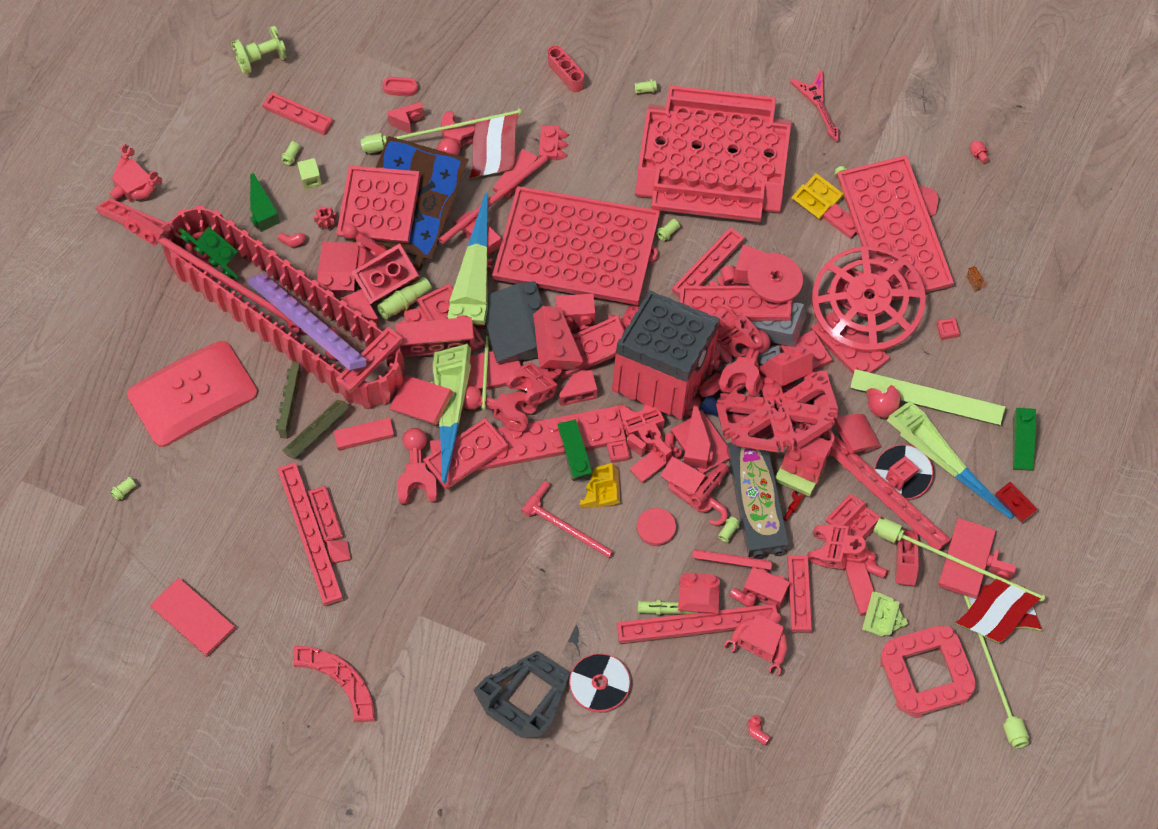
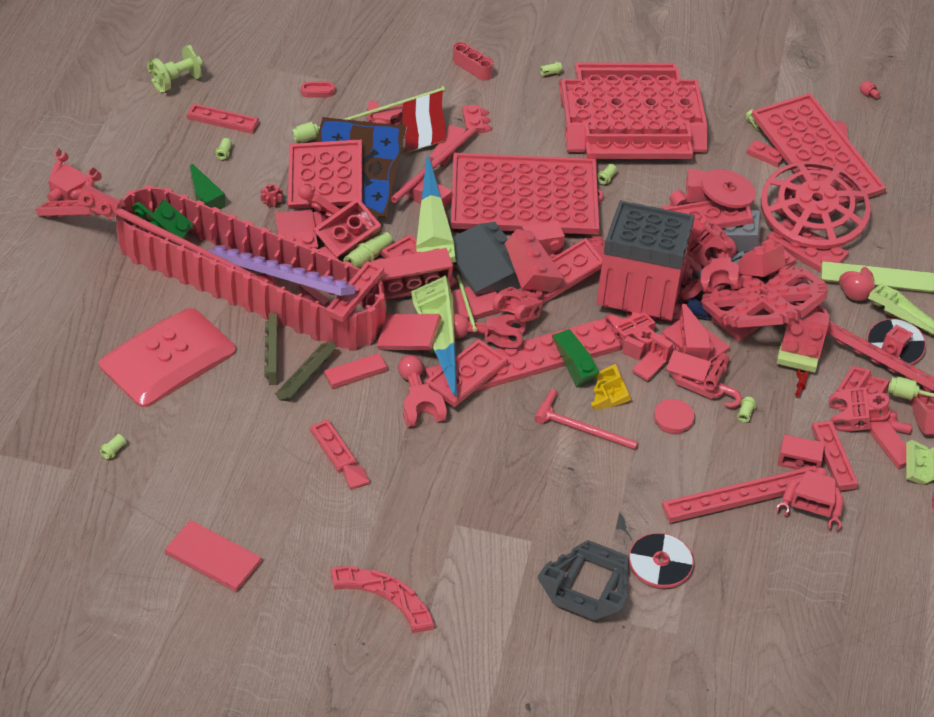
camera: 15 degrees left, 15 degrees down
(293, 240) = (246, 215): coral arm -> none
(309, 173) = (247, 162): yellowish green panel -> none
(310, 534) = (323, 464): coral plate -> none
(403, 116) = (330, 108): coral slope -> none
(579, 388) = (563, 307): coral slope -> none
(618, 451) = (616, 356): coral tile -> none
(660, 608) = (702, 484): yellowish green pin -> none
(699, 593) = (736, 464): coral slope -> none
(710, 261) = (660, 187): coral plate -> none
(732, 559) = (757, 432): coral tile -> none
(745, 599) = (780, 467): coral arm -> none
(755, 731) = (833, 583): coral arm -> none
(757, 501) = (766, 378): brick -> none
(814, 94) = (707, 62): coral piece -> none
(817, 196) = (736, 135): yellow slope -> none
(856, 433) = (842, 314): coral slope -> none
(947, 328) = (892, 225): coral tile -> none
(974, 278) = (903, 183): clear orange tile -> none

